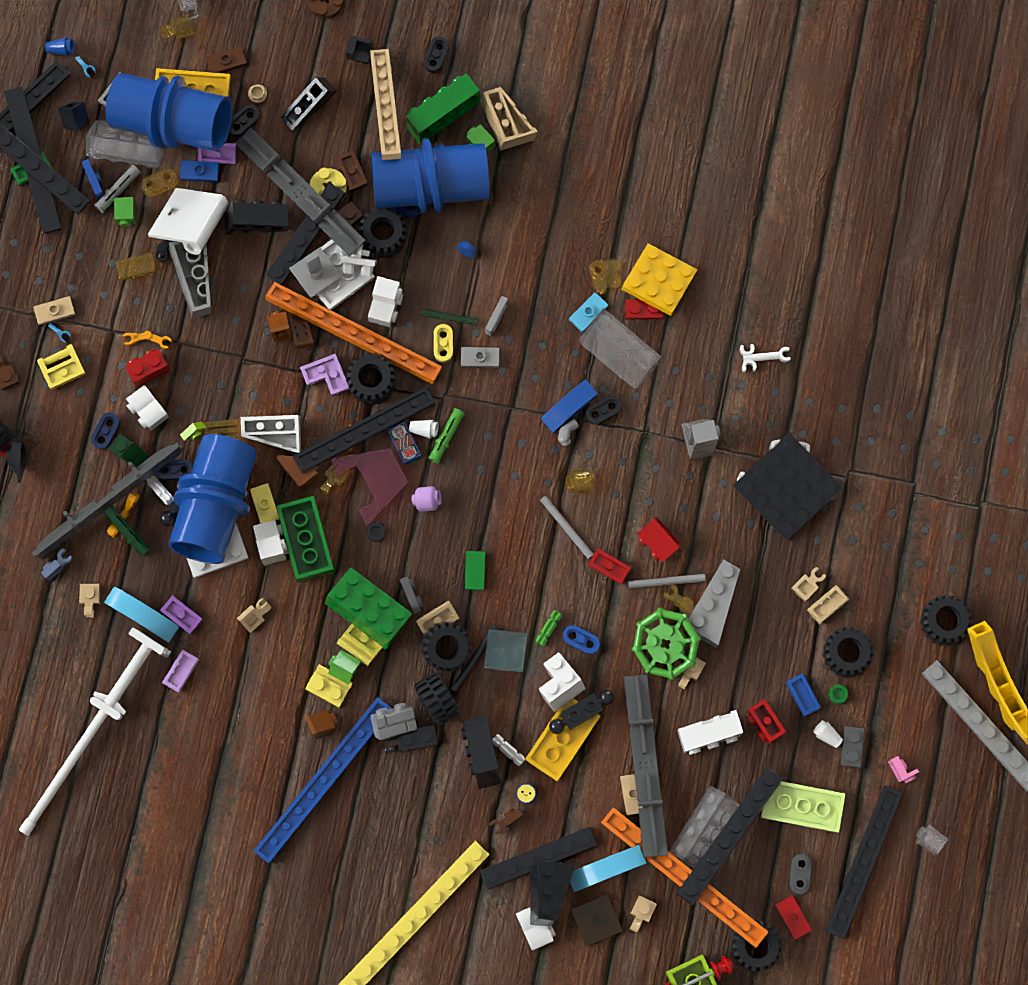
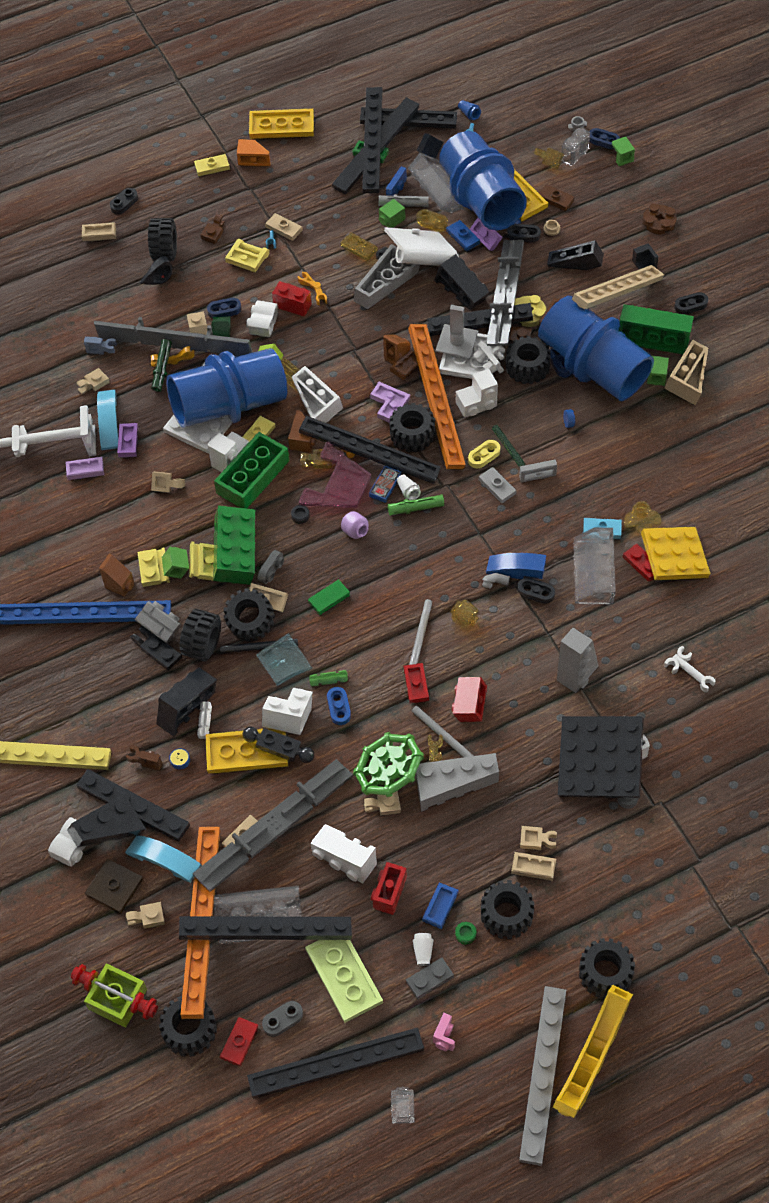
camera: 55 degrees right, 20 degrees down
(111, 469) = (198, 325): none -> tan slope

